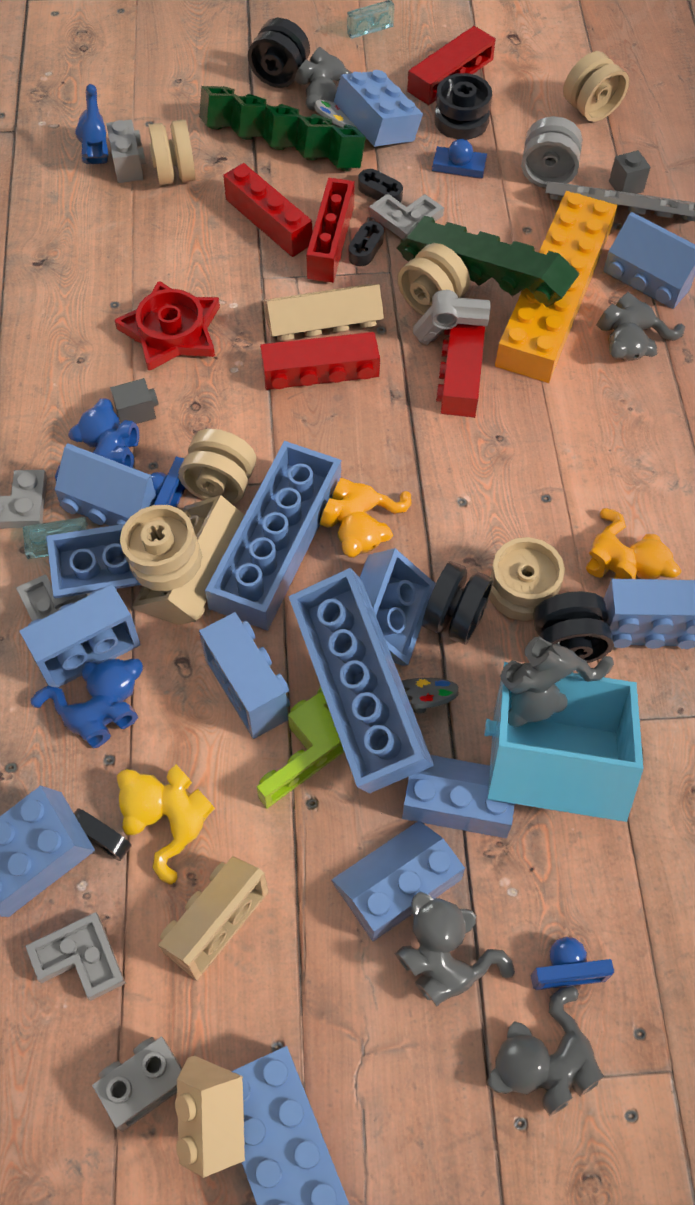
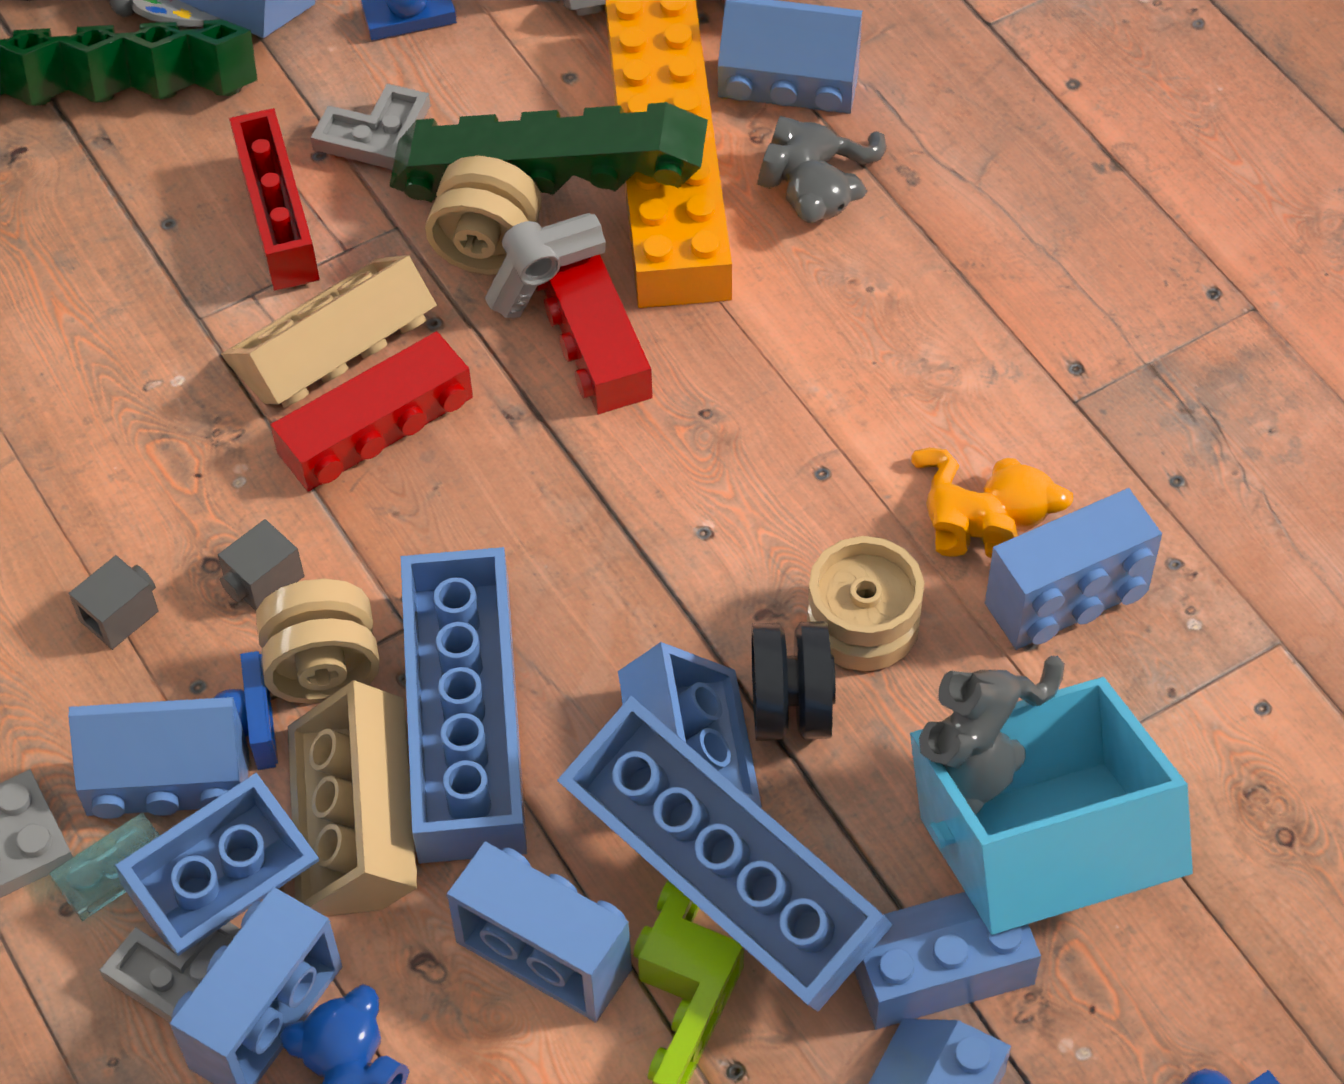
camera: 25 degrees left, 5 degrees down
(102, 429) = (86, 665): blue animal -> none
(161, 547) = (319, 797): tan wheel -> none
(171, 325) = (100, 454): red plate -> none
(216, 413) = (259, 564): none -> dark grey brick
(268, 209) = (151, 205): red brick -> none
(358, 529) = (580, 641): light orange animal -> none
(370, 244) = (344, 197): black beam -> none
(376, 185) = (305, 97): black beam -> none
(429, 692) = (824, 826): dark grey piece -> none
(576, 623) = (971, 632): black wheel -> none

